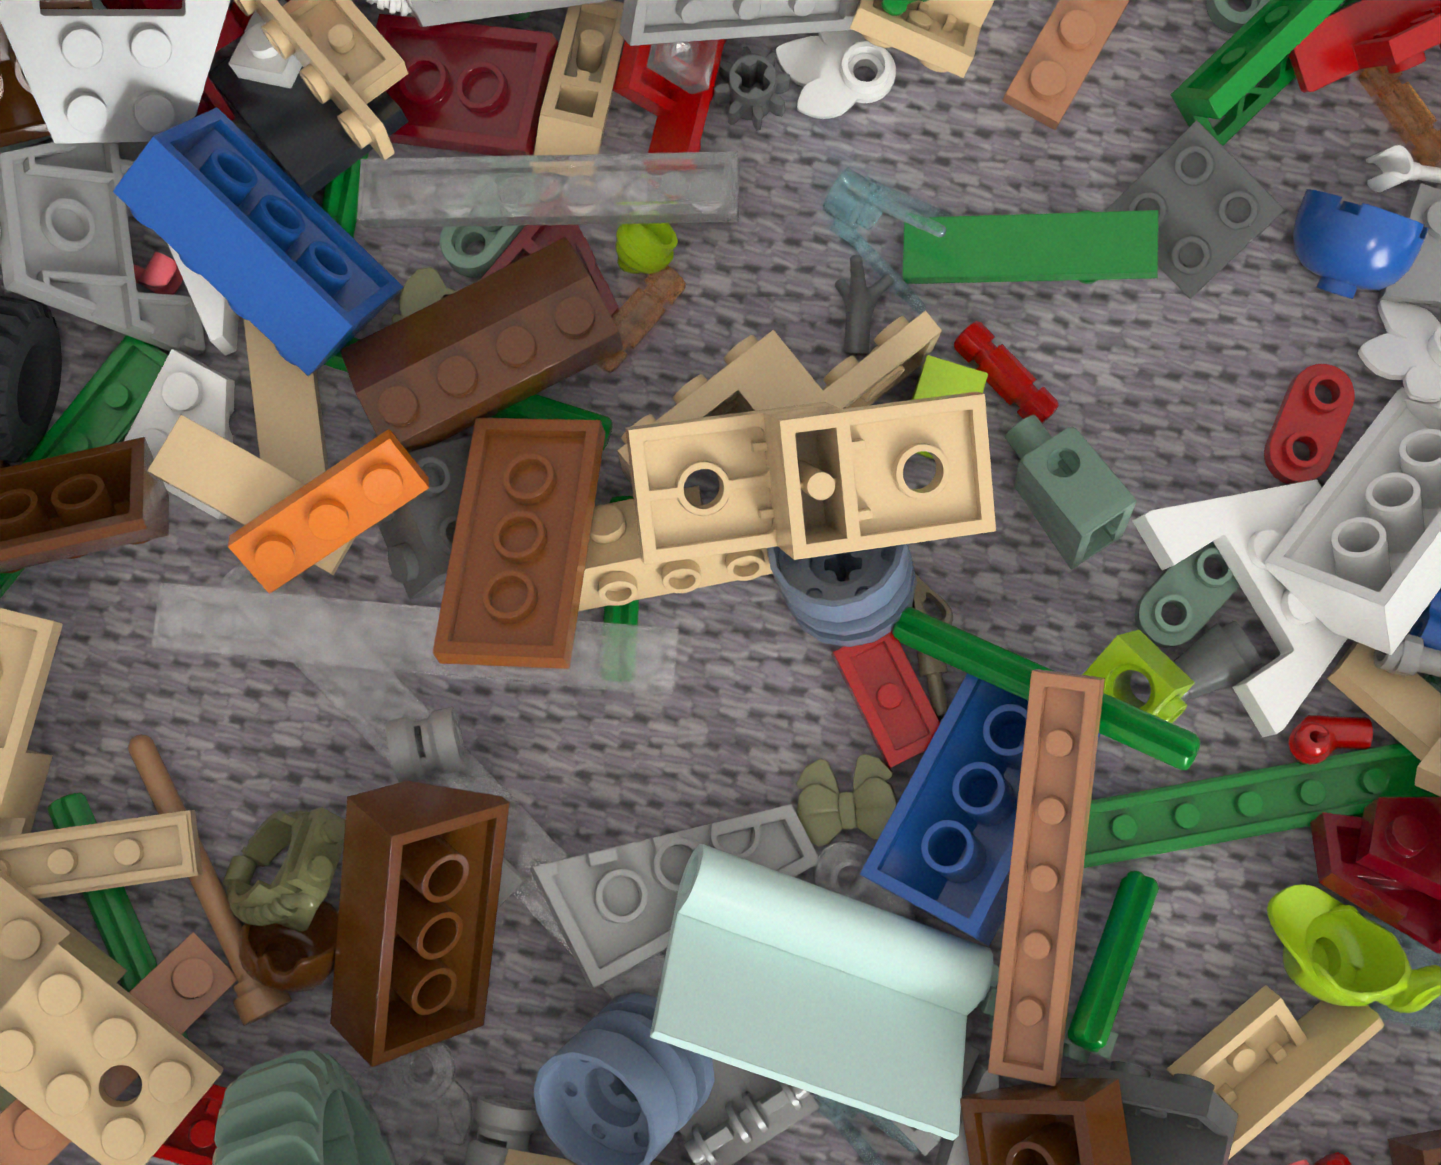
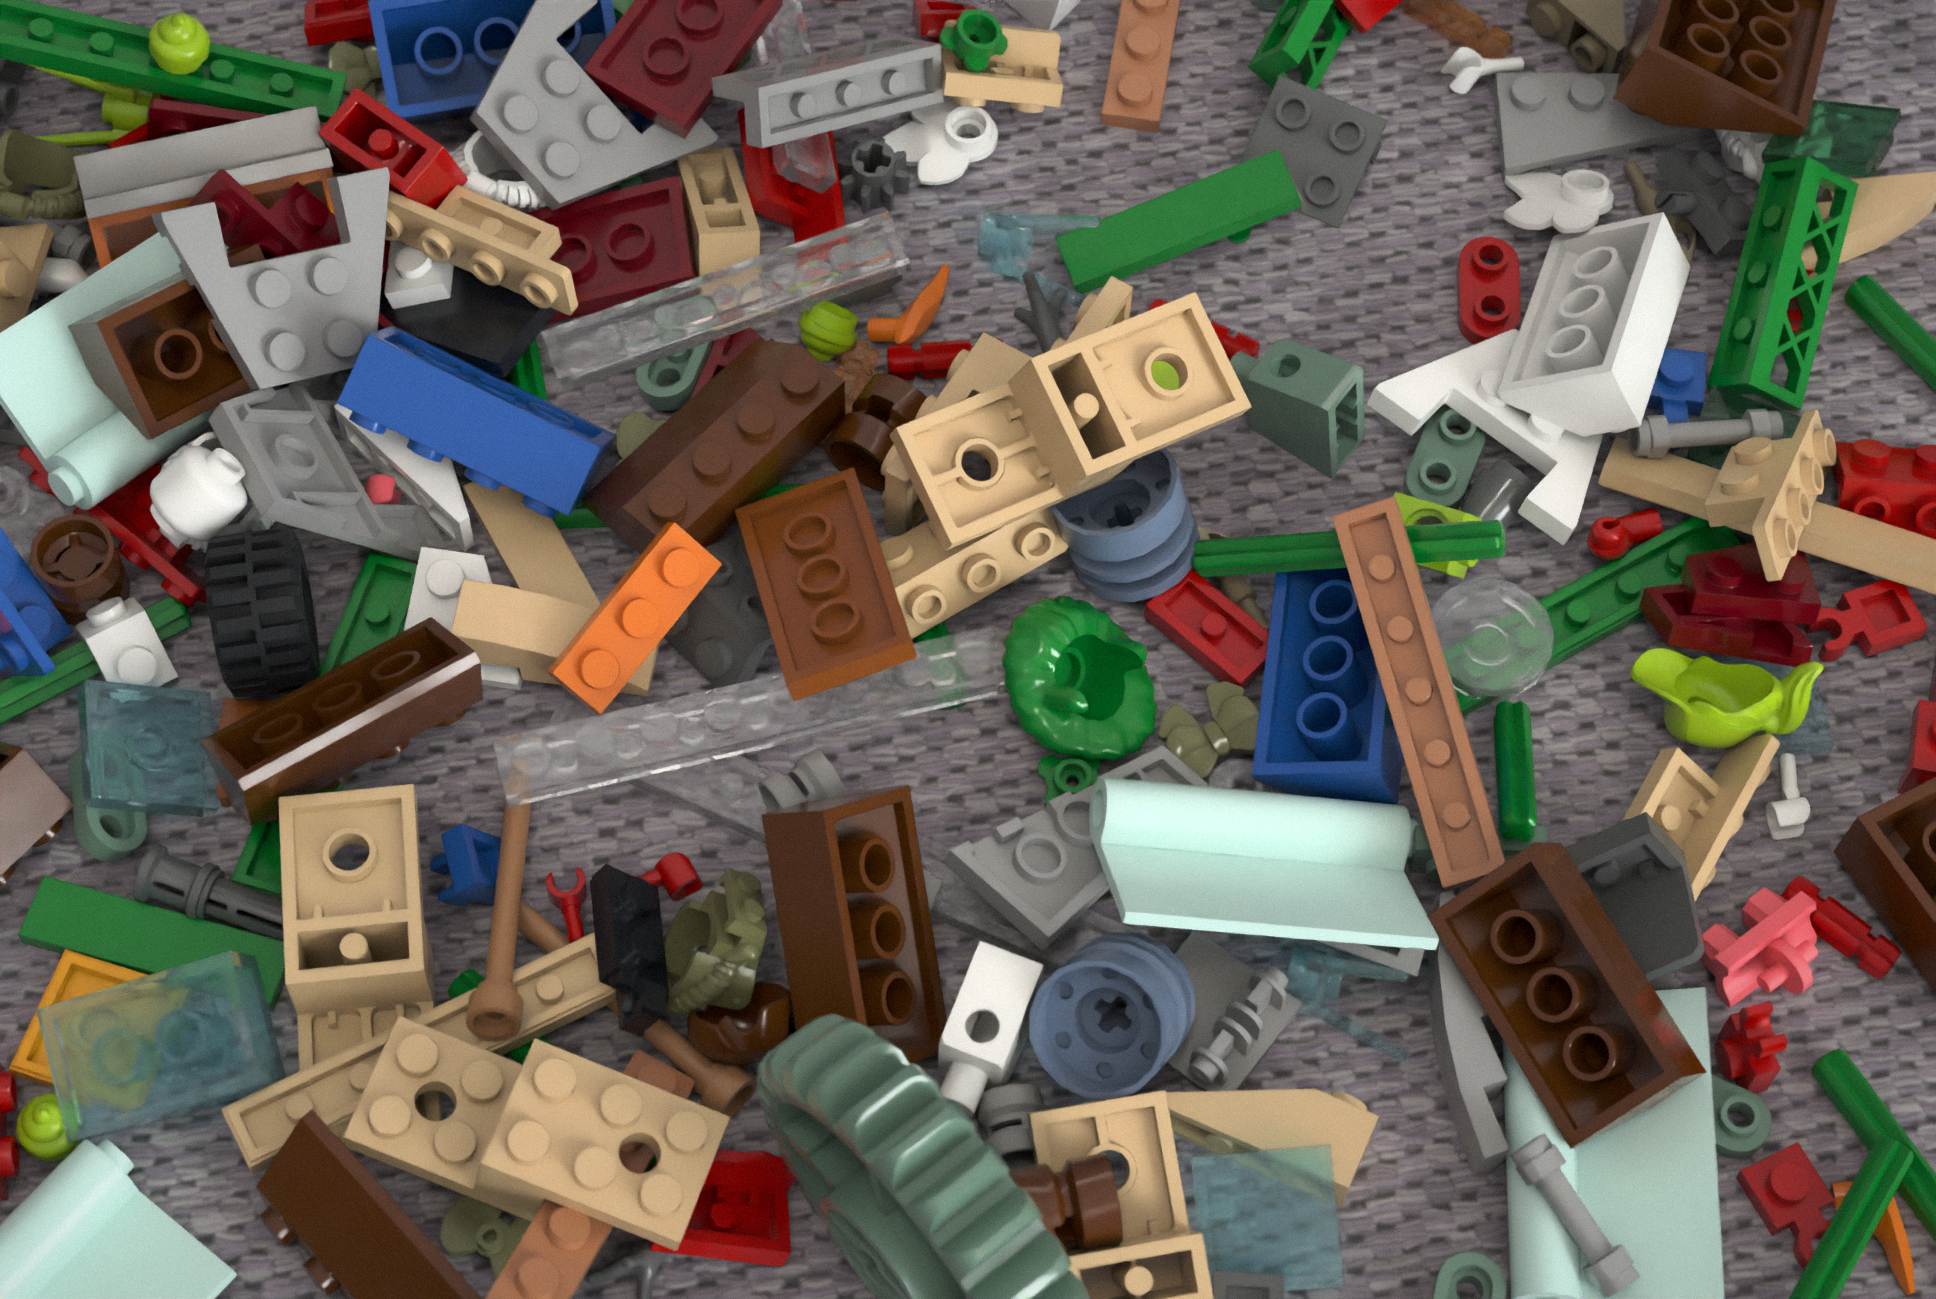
camera: 20 degrees left, 20 degrees down
(64, 860) = (495, 1005): none -> medium nougat piece
(112, 694) = (473, 865): none -> blue tile
(186, 762) = (569, 903): none -> red hand
(216, 837) = (630, 946): none -> black hinge
(295, 765) = (676, 875): none -> red hand
(521, 1026) = (987, 1025): none -> white torso
(628, 377) = (864, 434): none -> reddish brown wheel
(682, 791) = (1058, 770): none -> green plate
(736, 712) = (1078, 680): none -> green piece
(739, 255) = (916, 317): none -> orange bar
(748, 312) = (931, 360): none -> red axle
(1150, 812) = (1493, 637): none -> clear tile
(1354, 243) = (1459, 129): blue cylinder -> none
(1367, 1086) = (1787, 816): none -> white hand

